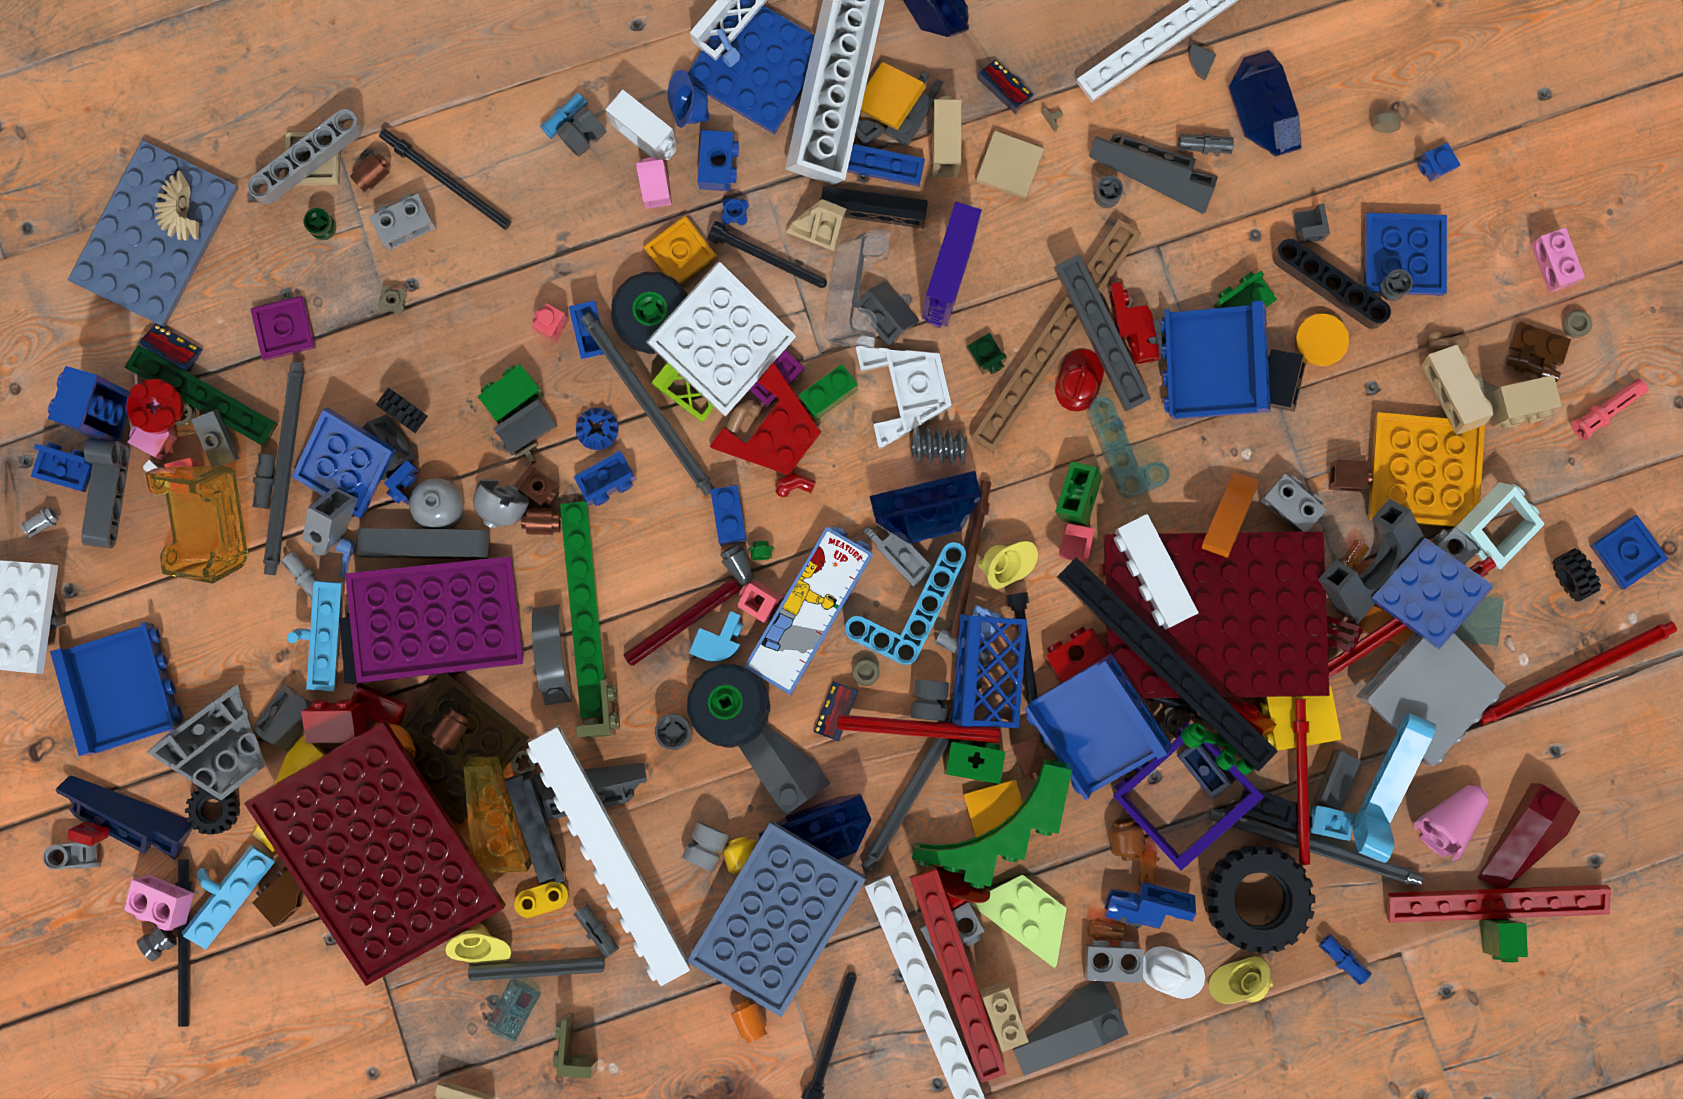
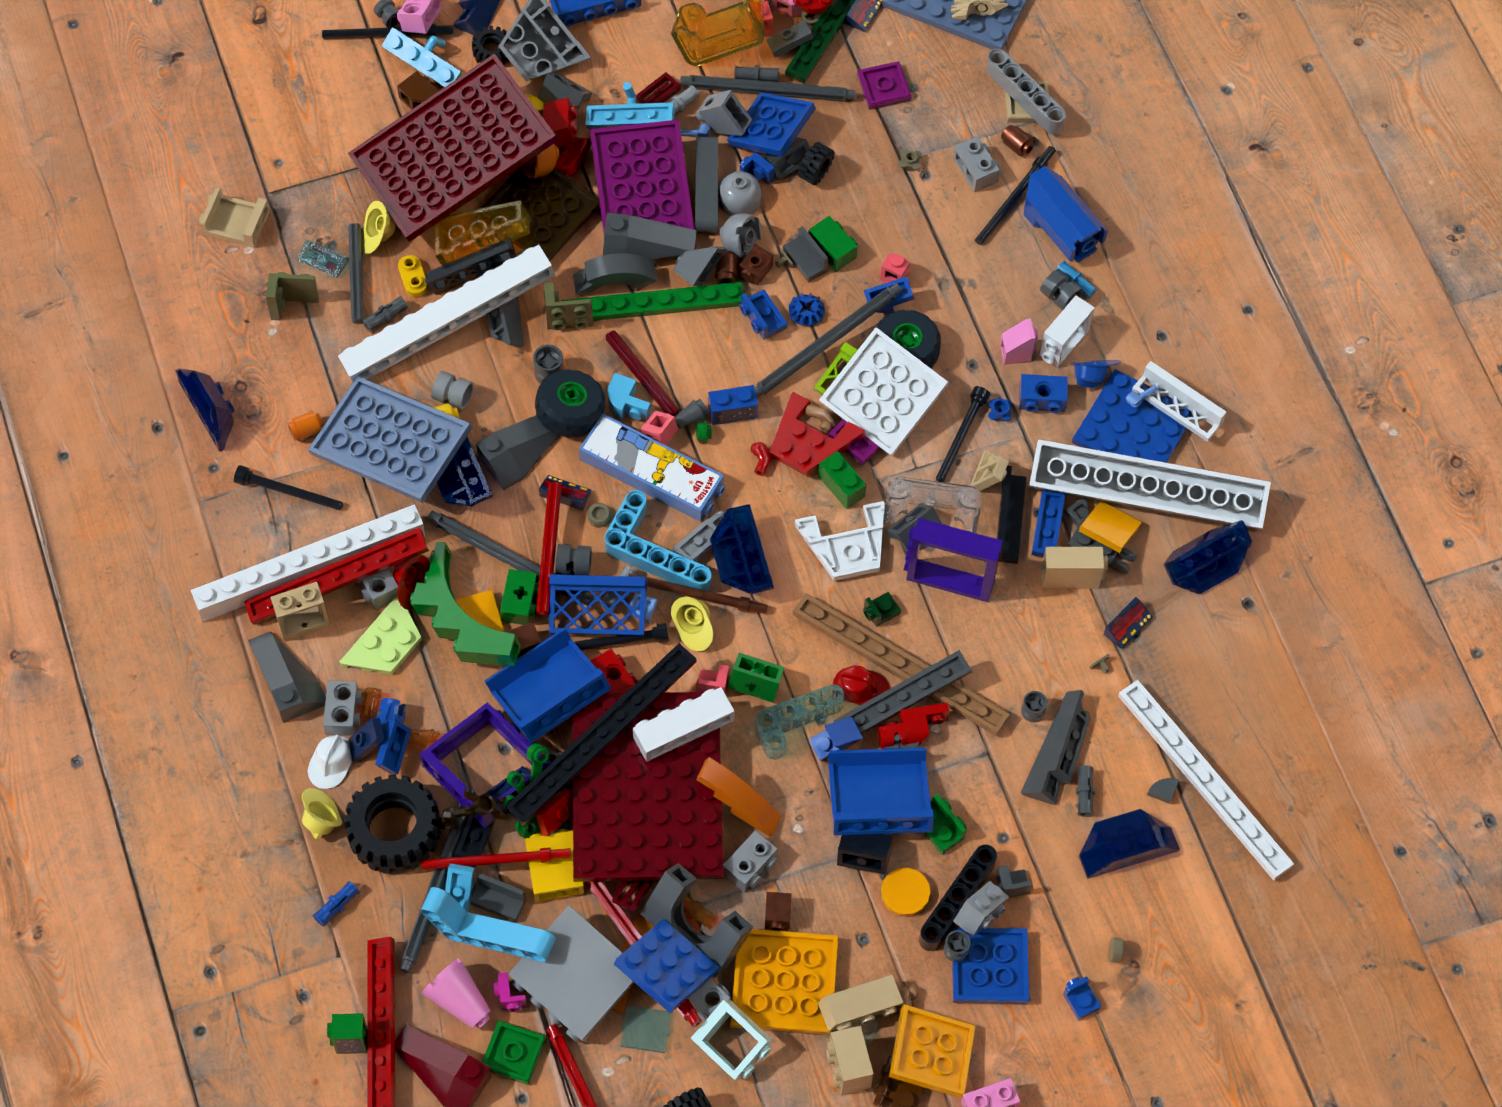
camera: 85 degrees right, 20 degrees down
(301, 620) = (661, 94): none -> dark red tile
(317, 219) = (971, 105): dark green wheel -> none
(449, 729) = (552, 201): copper brick -> none
(482, 123) = (1062, 215): none -> blue brick
(507, 618) = (646, 237): none -> dark grey wedge
(539, 555) = (698, 264): none -> dark grey slope
(680, 251) = (963, 369): light orange tile -> none
(939, 445) = (797, 568): dark grey piece -> none
(1009, 165) = (1055, 628): tan tile -> none
(1126, 839) = (447, 717): dark orange head -> none
(1150, 407) = (836, 737): none -> blue slope
(1158, 932) = (366, 739): none -> dark blue plate
(1265, 796) = (481, 804): none -> dark brown piece
(1353, 257) = (981, 909): none -> light grey brick
(1444, 773) = (508, 1002): none -> dark pink bracket
(1507, 316) = (932, 1051): none -> light orange plate
(1507, 760) = (513, 1052): none -> green tile

